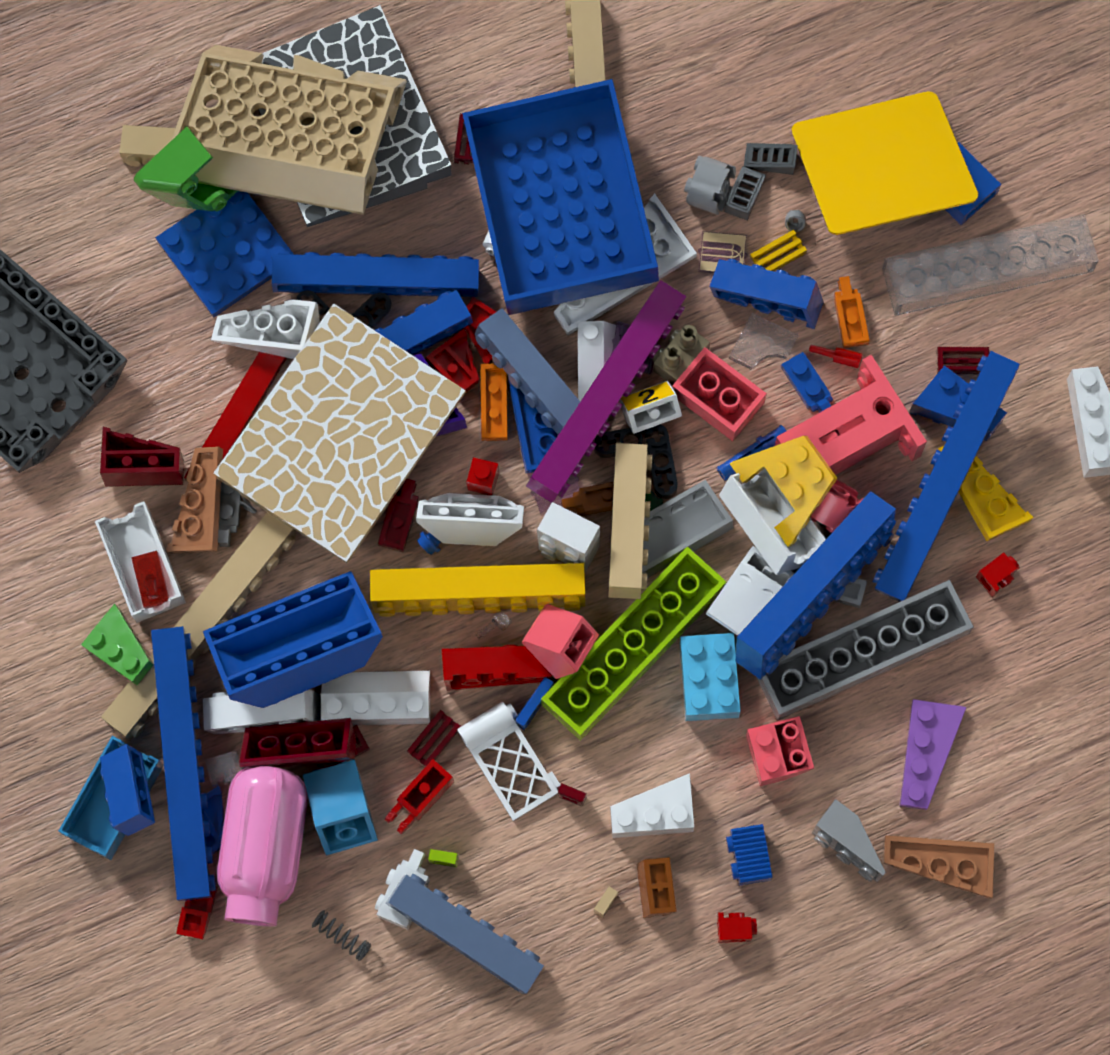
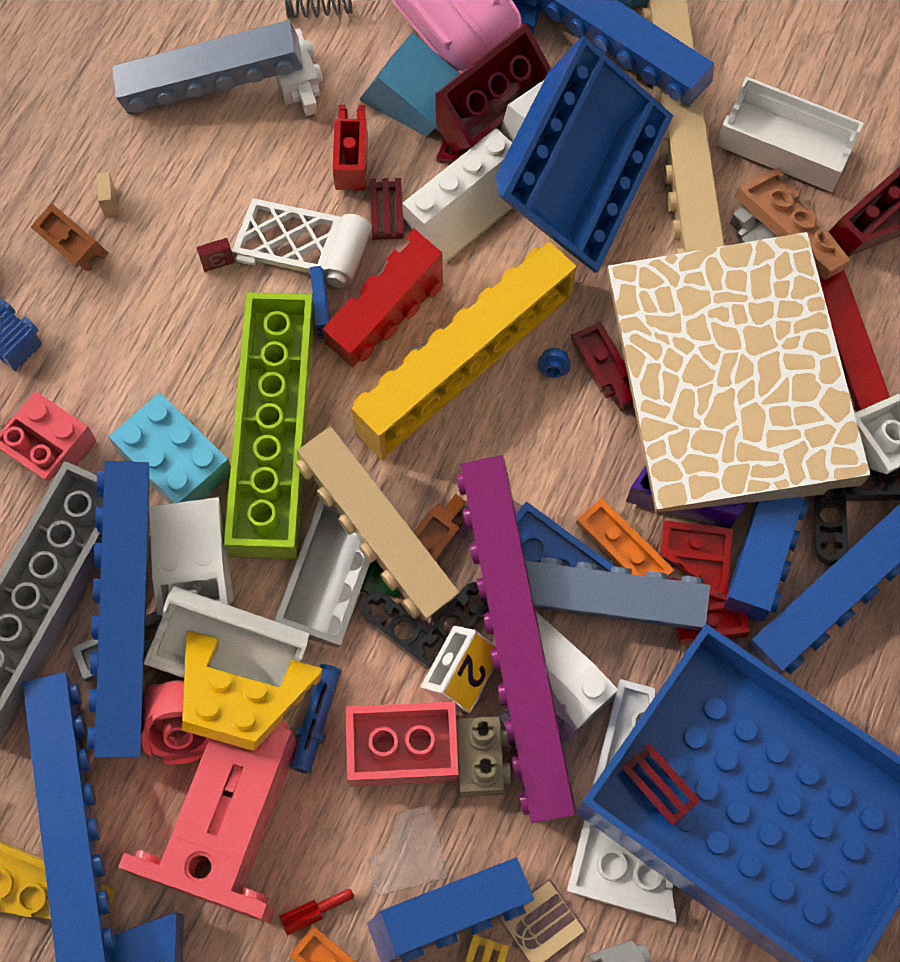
camera: 135 degrees right, 5 degrees down
(118, 647) = (731, 55): bright green wing -> none
(150, 579) = (770, 128): clear red hinge -> none
(223, 768) = (548, 36): clear brick -> none
(443, 858) = (285, 119): lime tile -> none
(470, 518) = (540, 412): white wedge -> none
(482, 476) = (563, 461): red brick -> none
(560, 640) = (339, 354): coral slope -> none
(568, 537) = (419, 454): white brick -> none
(606, 227) = (638, 759): none -> dark red tile
(656, 811) = (122, 297): white wedge -> none
(807, 383) = (318, 848): blue hinge -> none

